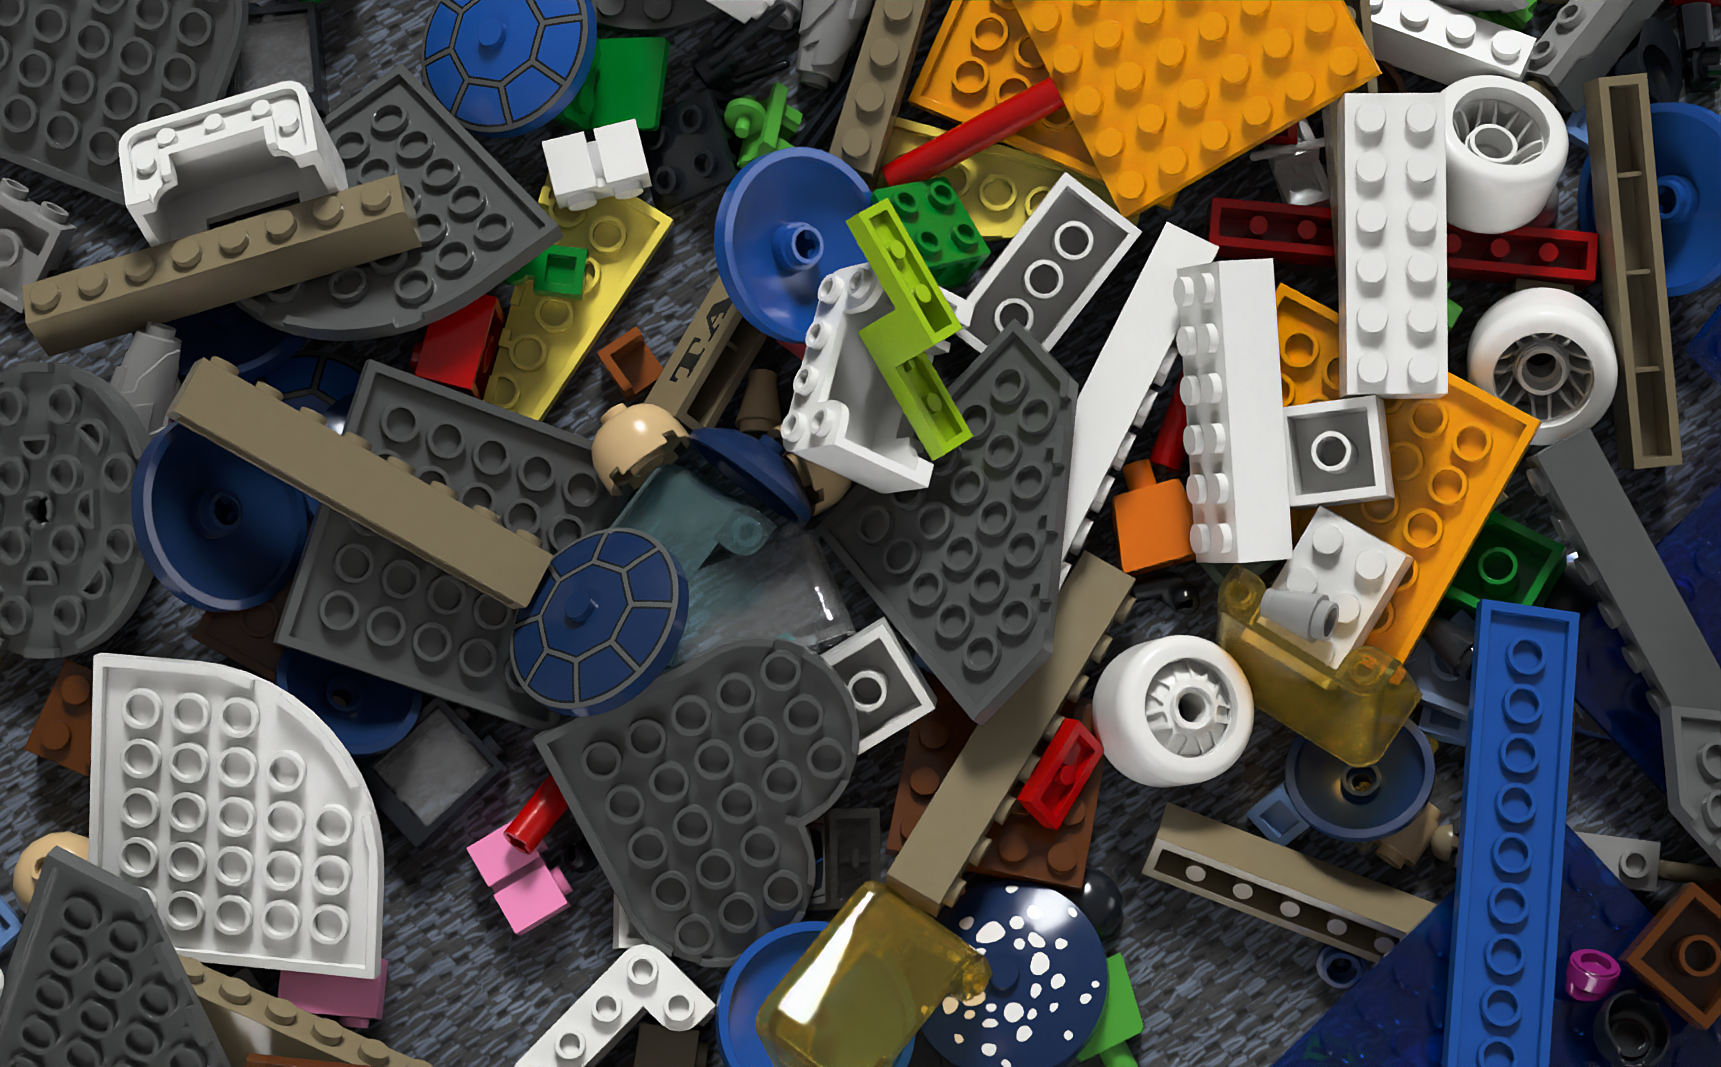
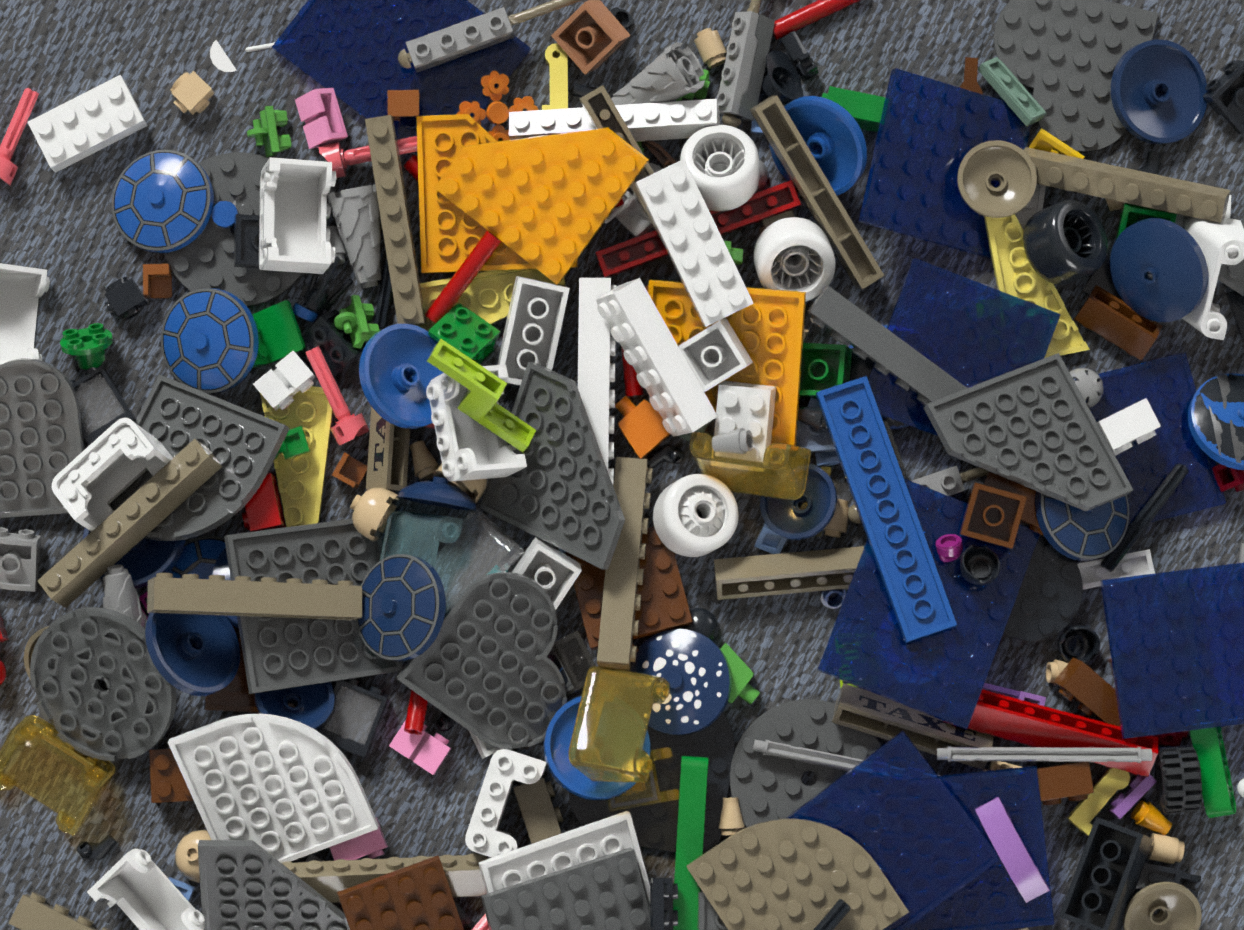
camera: 25 degrees left, 5 degrees up
(665, 285) = (348, 425): none -> coral piece
(685, 75) = (304, 313): none -> blue tile
(1061, 774) = (656, 571): red plate -> none

